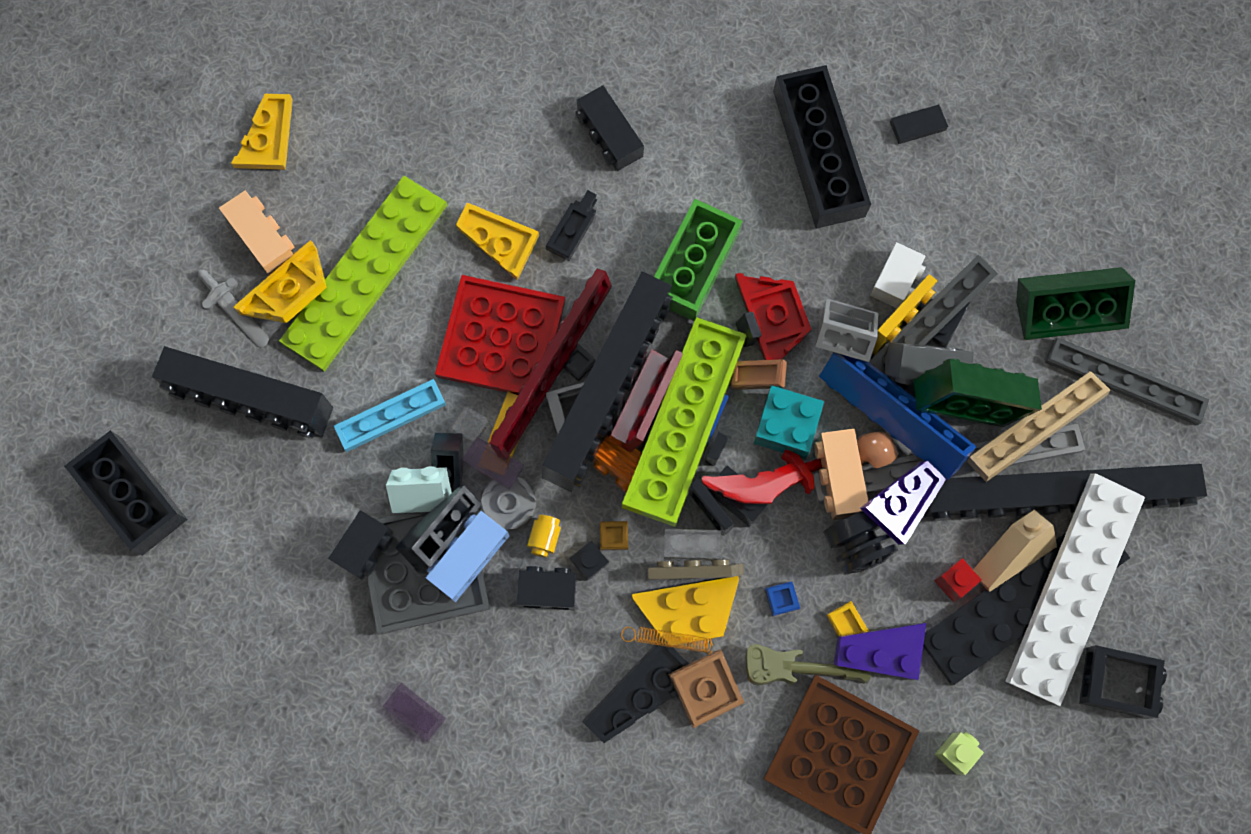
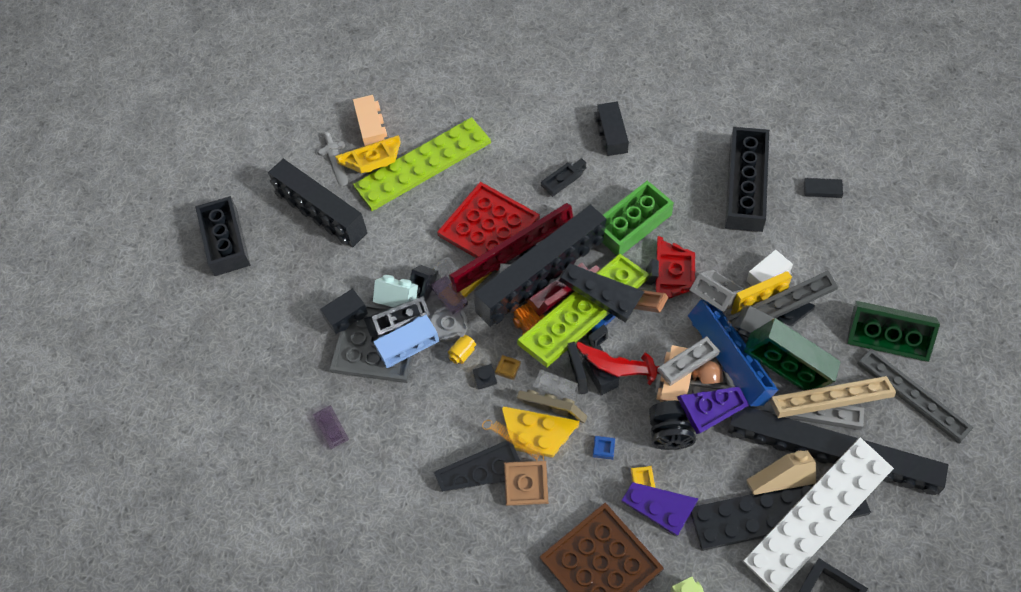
camera: 30 degrees right, 15 degrees down
(269, 135) = (402, 73): yellow wing -> none
(389, 415) = (399, 247): medium azure plate -> none
(498, 237) = (514, 169): yellow wing -> none
(546, 589) = (448, 382): black brick -> none
(706, 388) = (605, 292): none -> black wing
(768, 666) = (574, 484): olive piece -> none
(788, 422) = (654, 335): teal brick -> none
(852, 449) = (688, 361): none -> light grey tile
(957, 580) = (733, 478): red brick -> none

